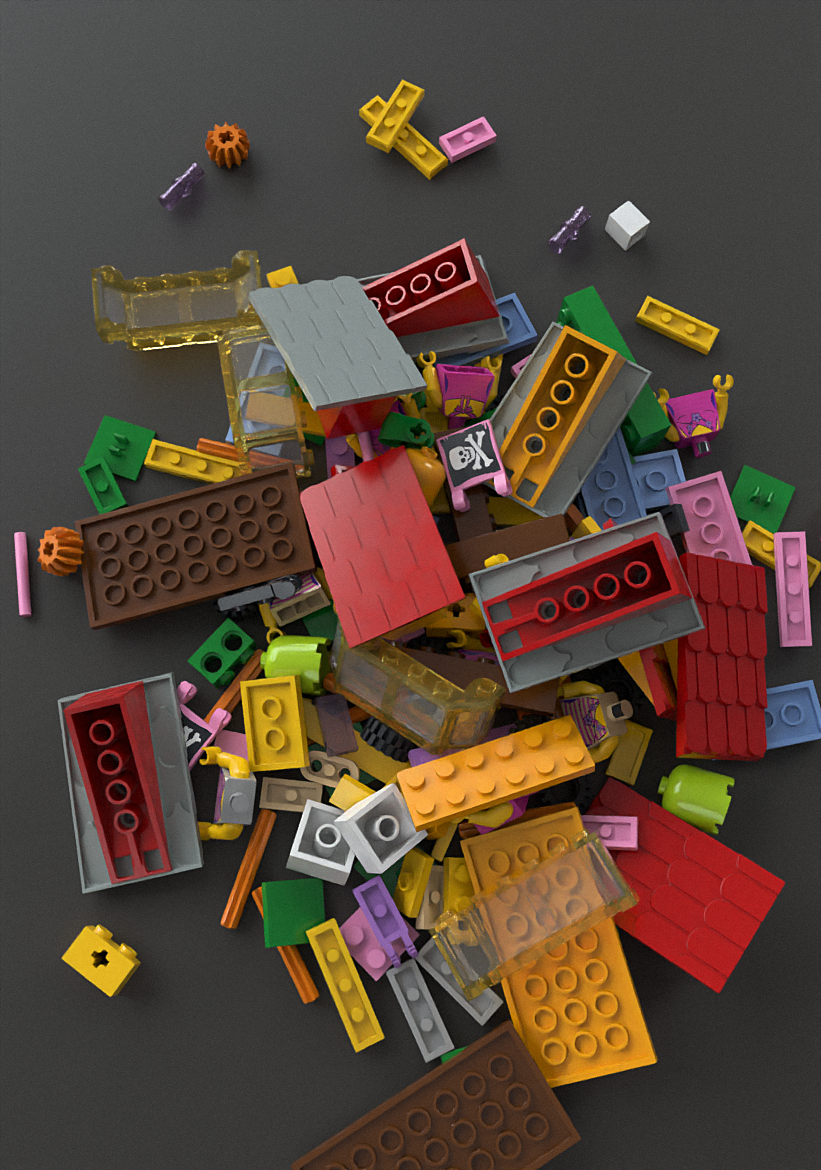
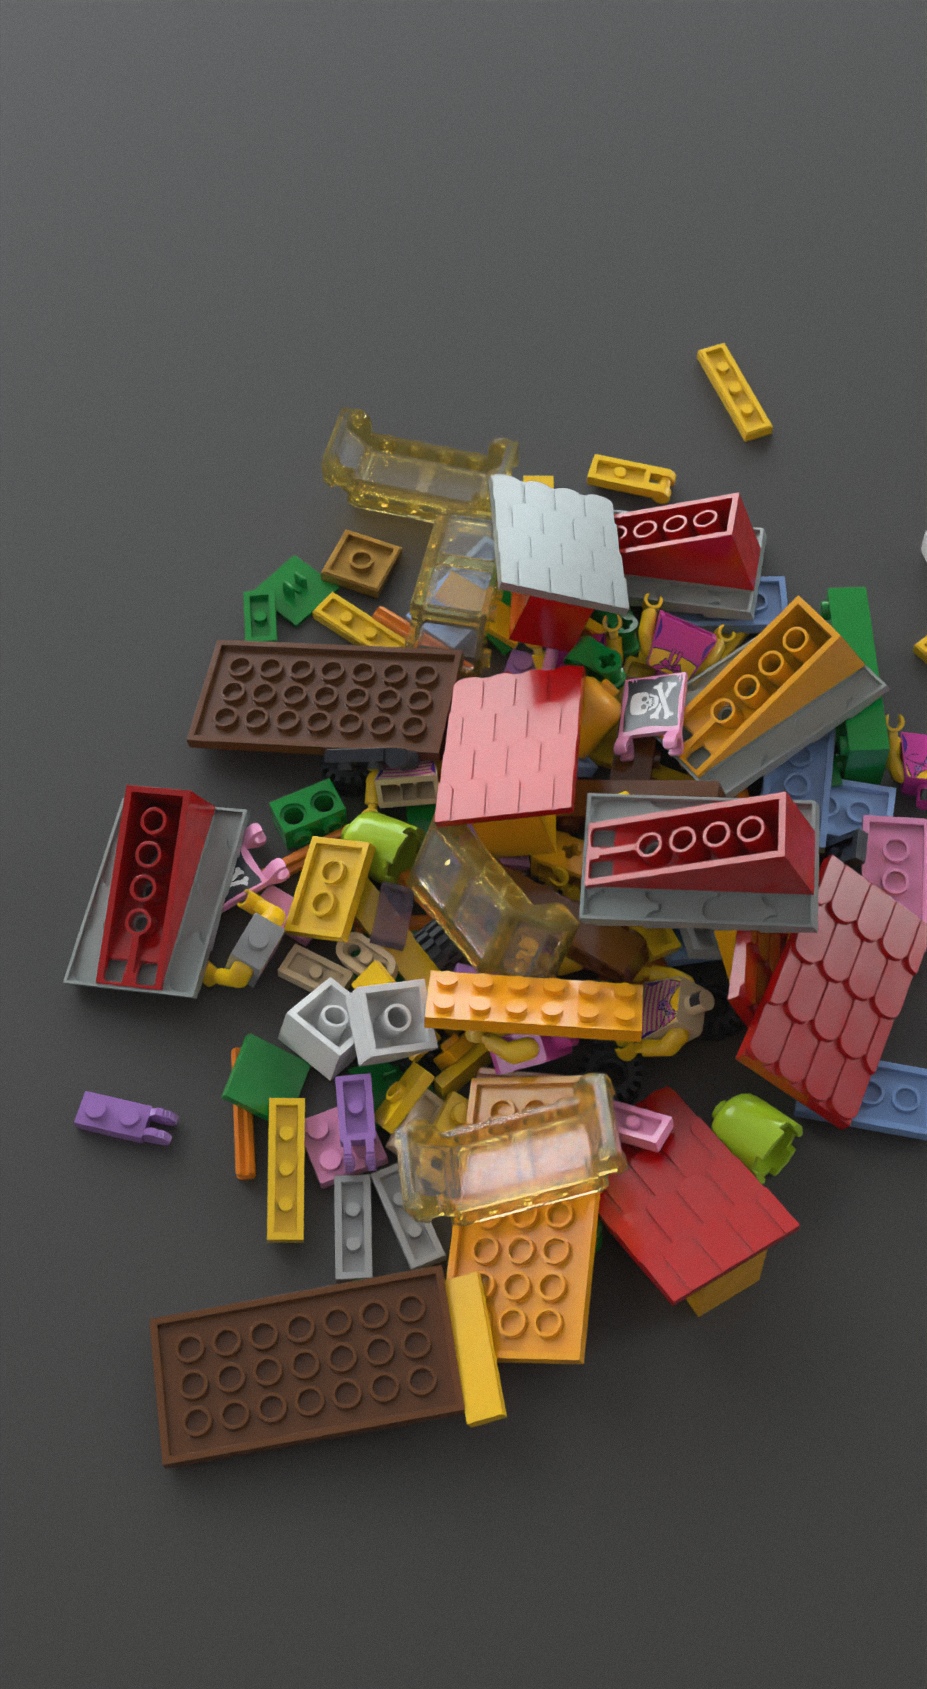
camera: 30 degrees right, 15 degrees down
(22, 574) = (142, 673): bright pink bar -> none
(60, 551) = (190, 660): orange gear -> none
(85, 958) = (56, 1068): yellow brick -> none
(165, 403) = (361, 563): none -> pearl gold tile
(181, 186) = (473, 366): clear purple pin -> none
(186, 992) = (123, 1119): none -> medium lavender hinge
(227, 145) = (539, 342): orange gear -> none
(248, 869) = (239, 1027): orange axle -> none
(354, 245) = (631, 477): none -> yellow plate
(395, 116) = (732, 367): yellow tile -> none
(467, 139) = (803, 414): bright pink plate -> none
(566, 1081) = (475, 1350): none -> yellow tile
(569, 229) = (877, 536): clear purple pin -> none
(629, 753) = (701, 1071): yellow tile -> none

